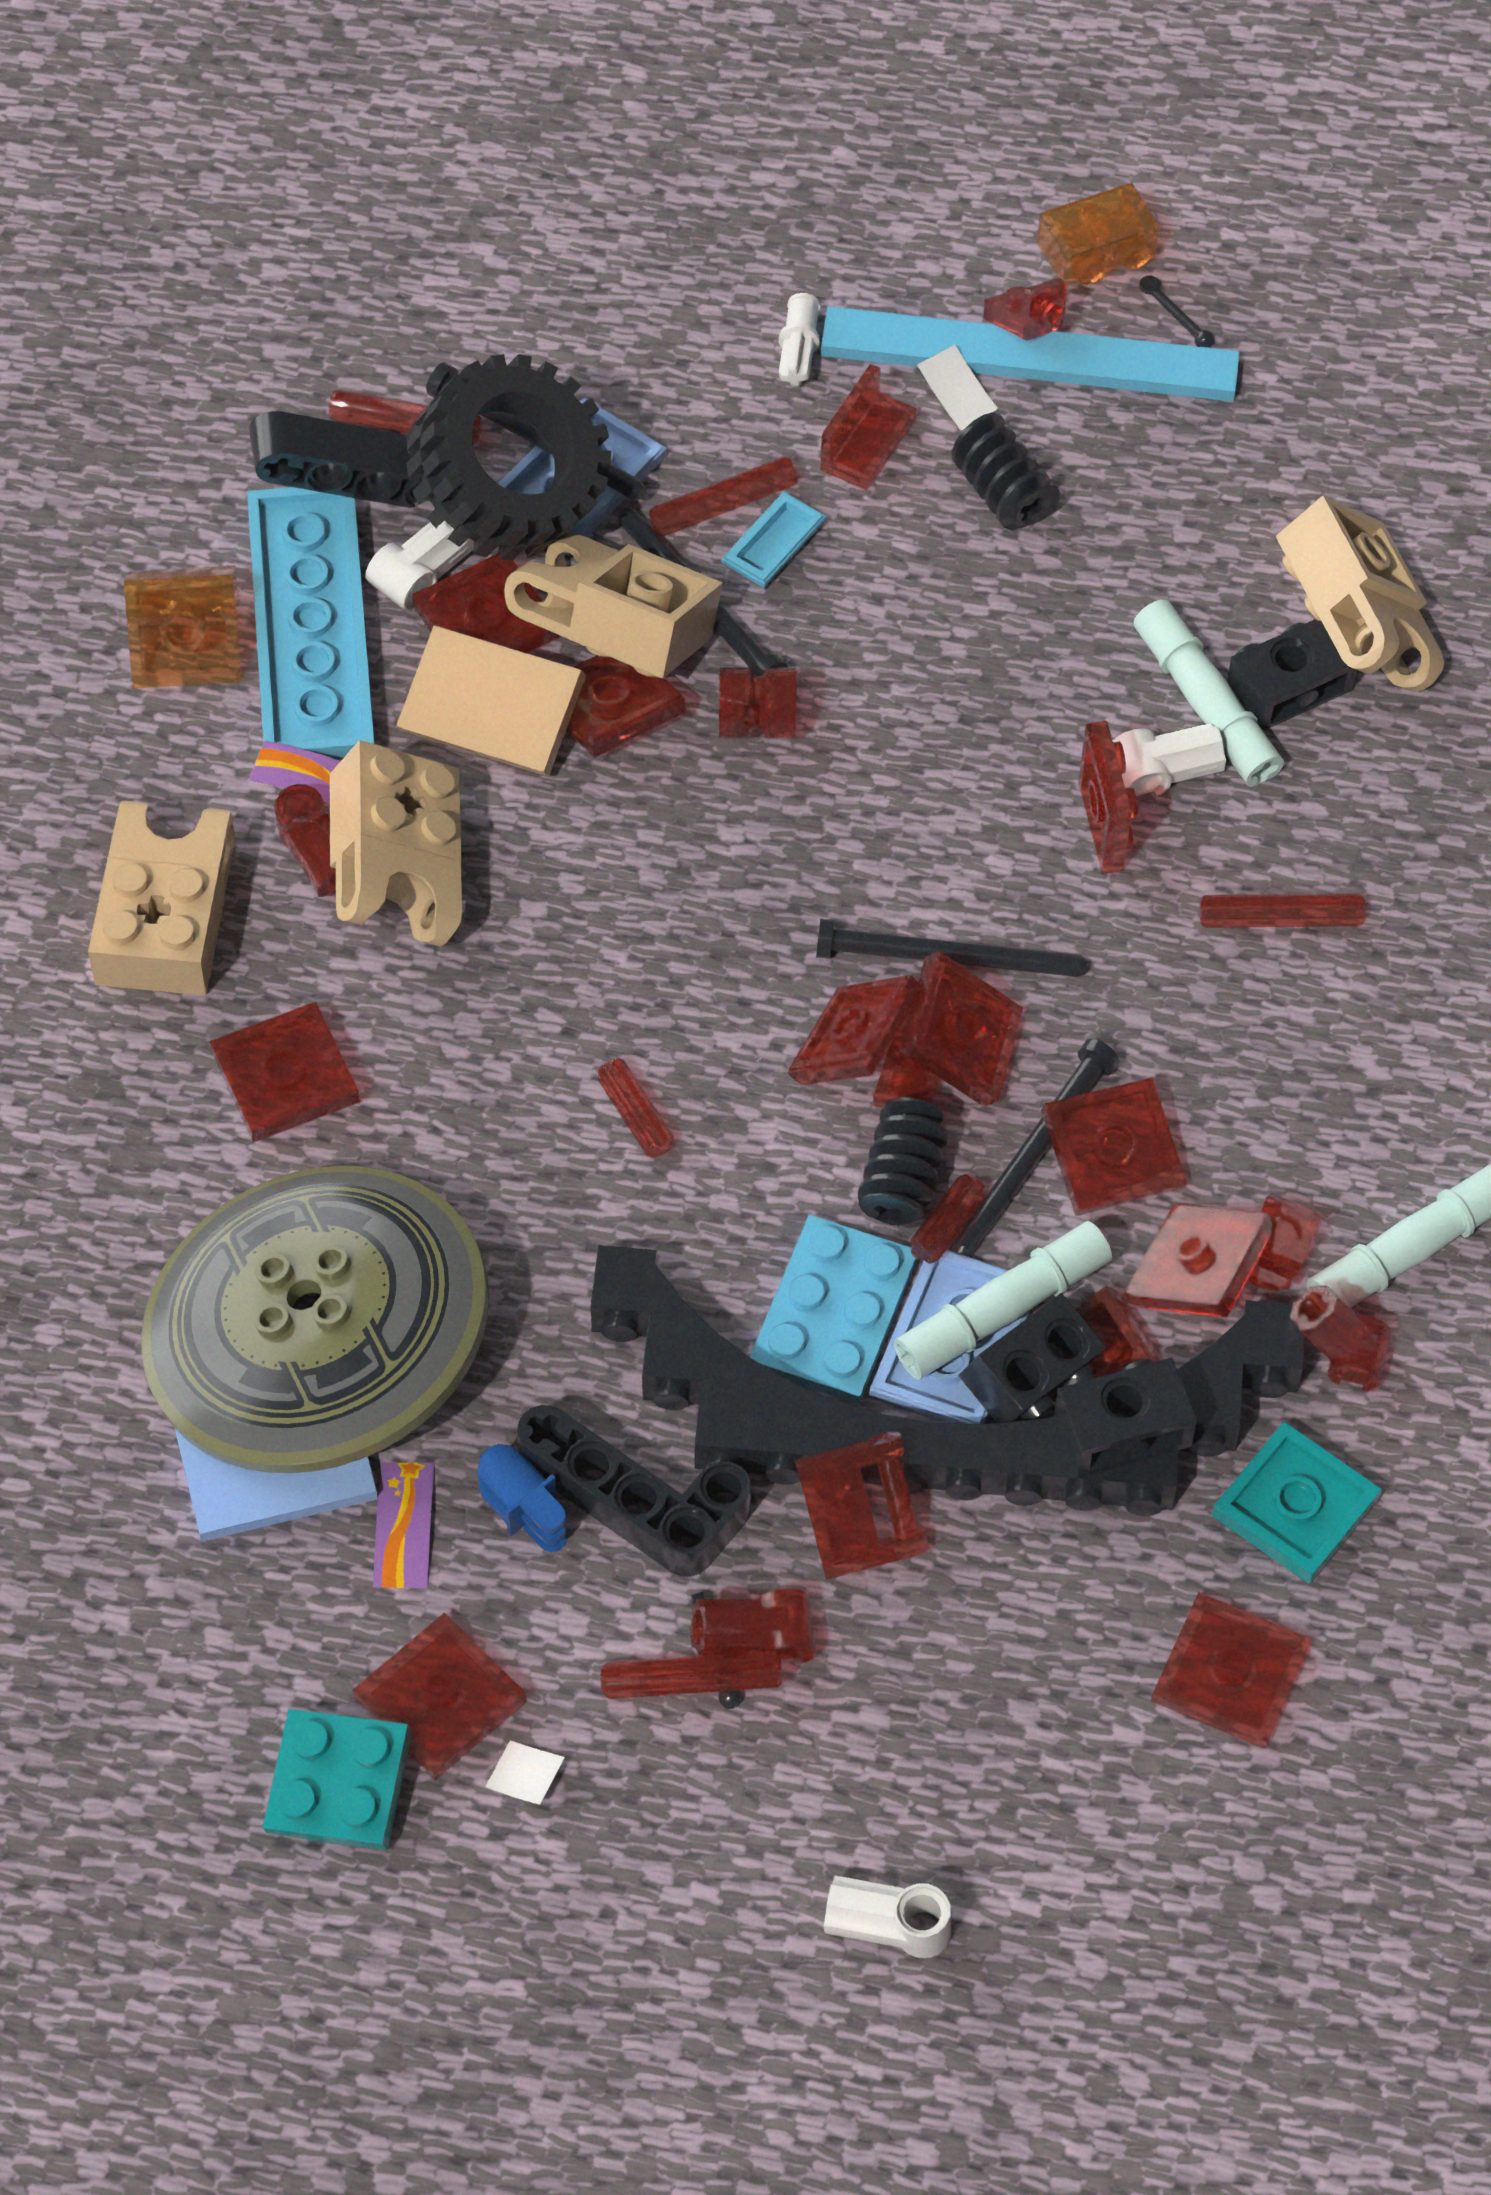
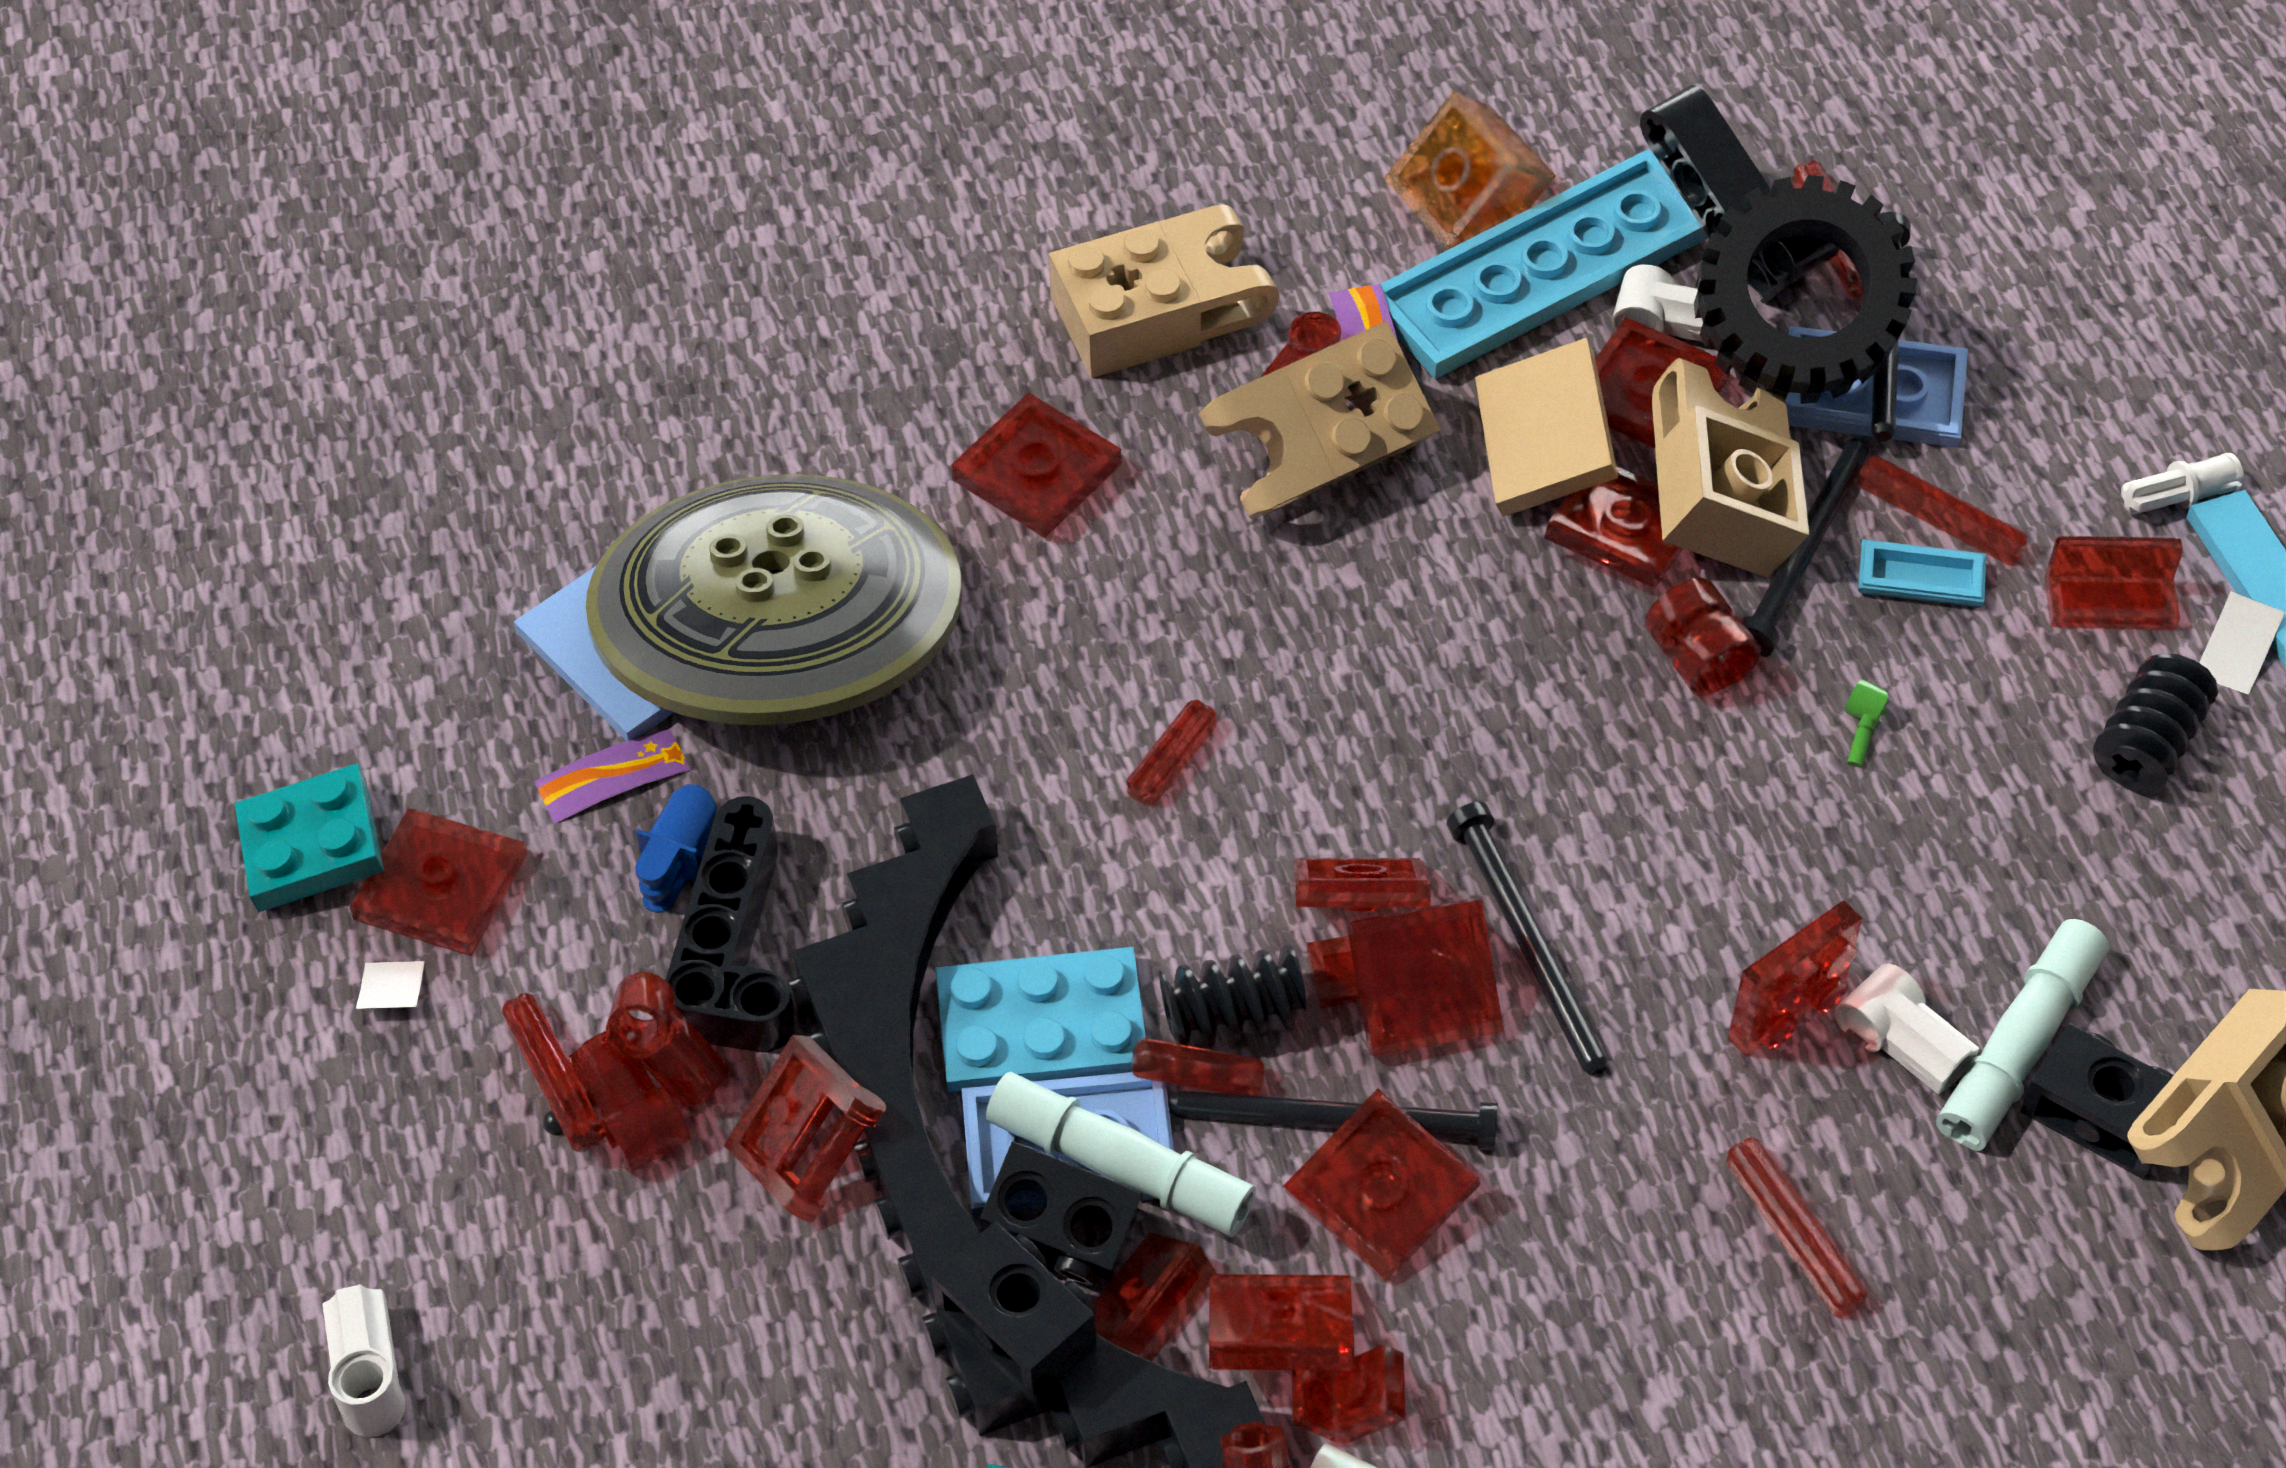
camera: 65 degrees right, 5 degrees down
(723, 1571) = (665, 1044): none -> clear red piece
(877, 634) = (1867, 704): none -> bright green hand

